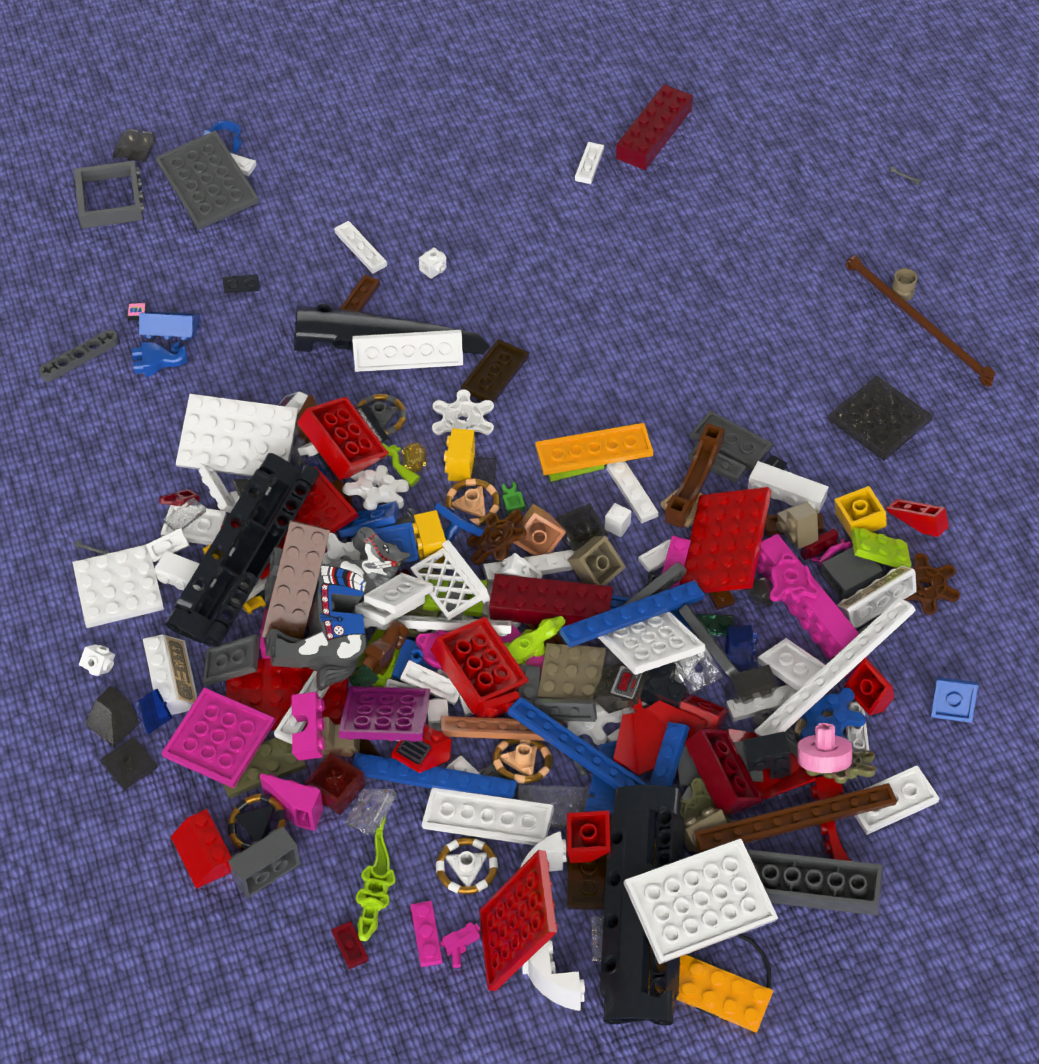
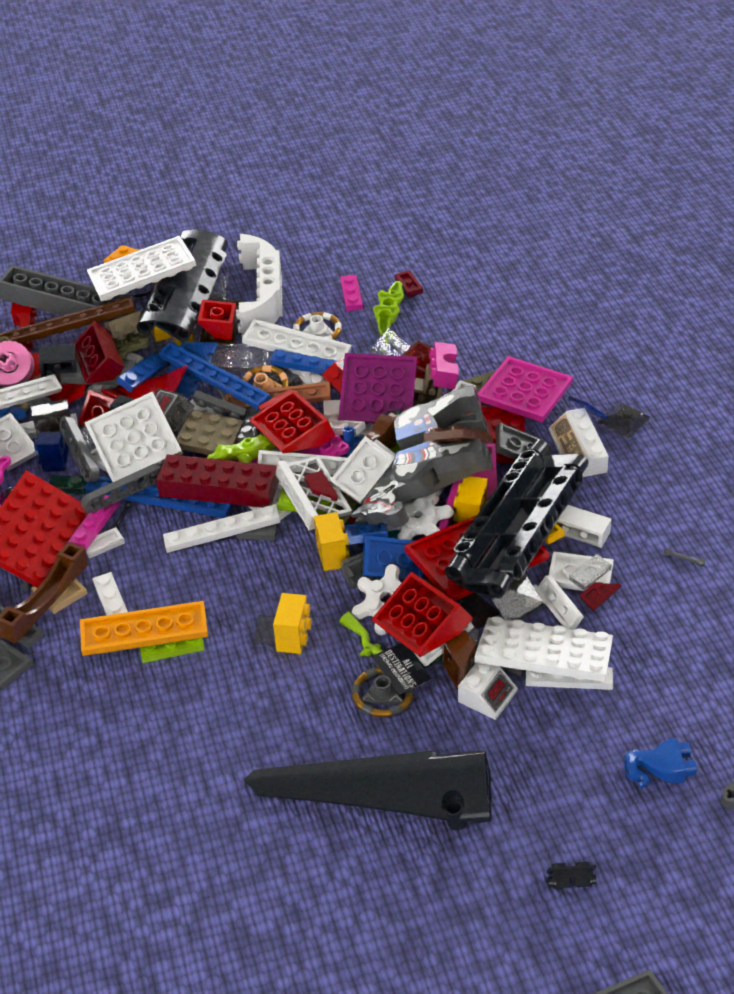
camera: 175 degrees left, 10 degrees down
(97, 659) = (649, 451): white brick -> none
(117, 586) = (648, 523): white plate -> none
(128, 763) = (603, 389): clear smoke plate -> none
(134, 310) = (706, 837): tile -> none
(168, 324) = (657, 811): slope -> none
(171, 542) = (606, 547): white plate -> none
(201, 849) = (526, 333): red slope -> none
(256, 821) = (485, 341): black piece -> none
(264, 862) = (476, 314): dark grey brick -> none
(300, 802) = (469, 351): dark pink slope -> none
(360, 247) = (408, 930): white plate -> none
(361, 294) = (408, 847): reddish brown plate -> none
(408, 350) = (338, 750): white plate -> none
(414, 457) = (343, 634): clear yellow head -> none
(432, 262) = (306, 889): white brick -> none
(442, 579) = (320, 485): none -> dark red tile
(456, 942) = (326, 288): dark pink piece -> none
(457, 521) = (299, 549): blue tile -> none
(465, 408) = (288, 669): white plate -> none
(473, 499) = (282, 584): light nougat piece -> none
(495, 371) = (241, 737): dark brown plate -> none
(497, 537) = (271, 532): reddish brown plate -> none
(512, 499) = (241, 592): bright green plate -> none
(517, 920) = (279, 254): red plate -> none
(518, 567) = (245, 502): white hinge -> none
(542, 531) = (223, 544): nougat slope -> none
(580, 526) = (176, 554): clear smoke slope -> none
(596, 562) = (167, 516): dark tan brick -> none
(618, 520) = (135, 566): white brick -> none
(631, 613) = (143, 457): blue plate -> none

